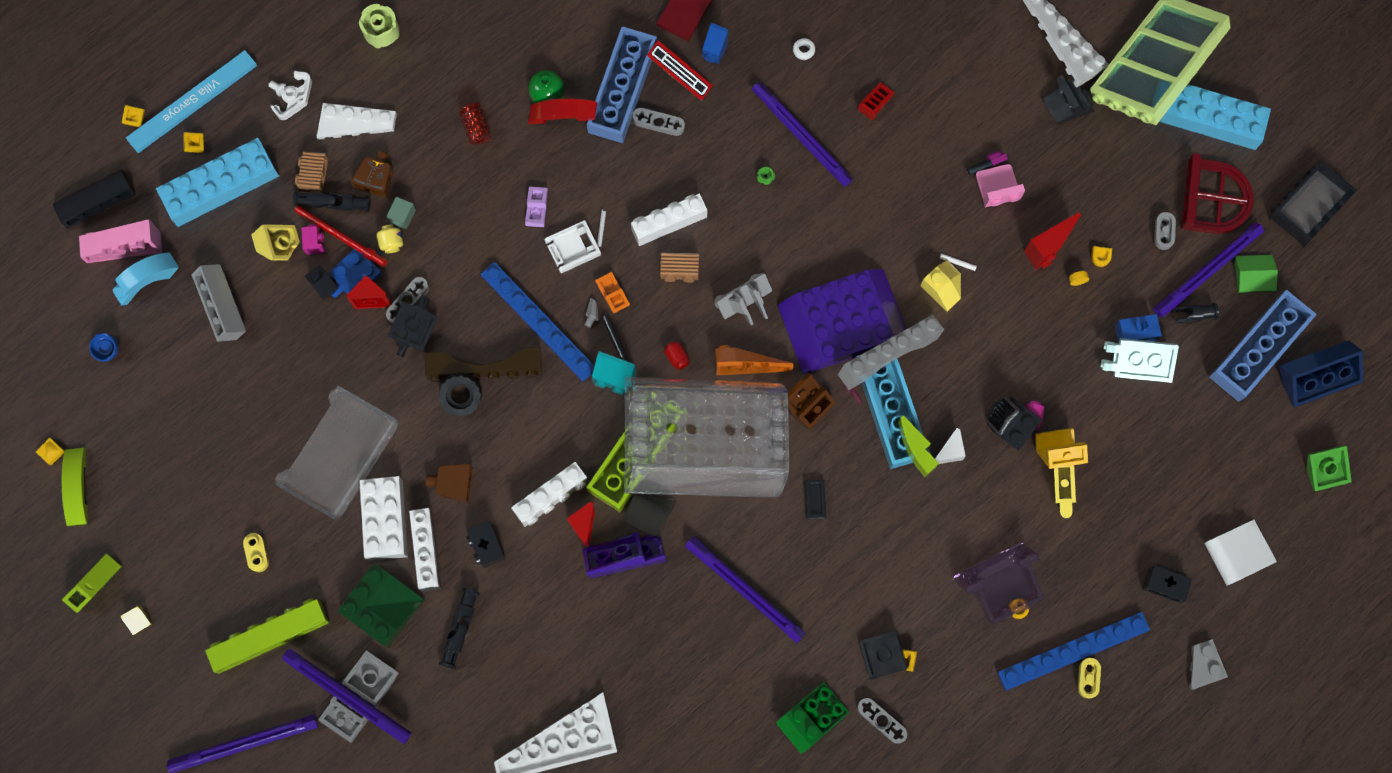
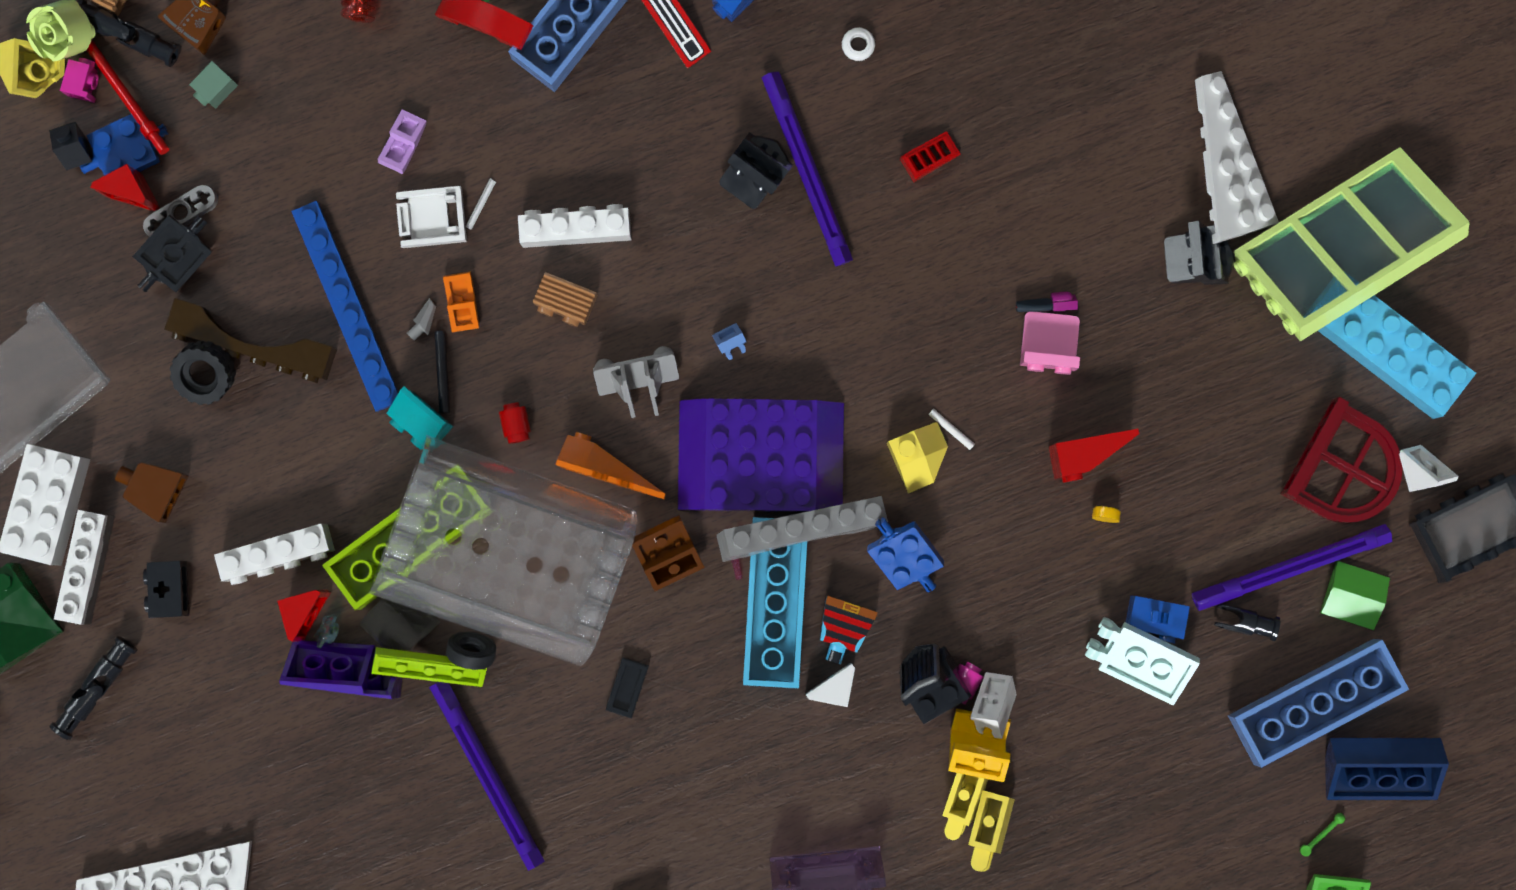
camera: 20 degrees right, 10 degrees up
(289, 210) = (59, 30): none -> yellowish green brick
(389, 239) = (184, 117): light yellow head -> none
(603, 533) = (327, 632): none -> clear light blue plate
(672, 121) = (614, 67): light grey beam -> none
(681, 530) = (424, 667): none -> lime tile
(704, 510) = (471, 660): none -> black tyre
(765, 171) = (730, 204): bright green plate -> none
(770, 146) = (755, 169): none -> black piece
(794, 254) = (729, 339): none -> medium blue tile
(916, 447) = (782, 675): lime slope -> none
(941, 408) = (844, 627): none -> torso
(963, 347) = (905, 555): none -> blue plate
(1058, 419) = (994, 703): none -> white hinge
(1089, 501) = (989, 828): none -> light yellow brick
(1101, 256) = (1151, 493): yellow tile -> none
(1165, 232) = (1255, 492): light grey plate -> none
(1265, 180) = (1424, 469): none -> white slope
(1295, 444) = (1306, 850): none -> bright green hinge

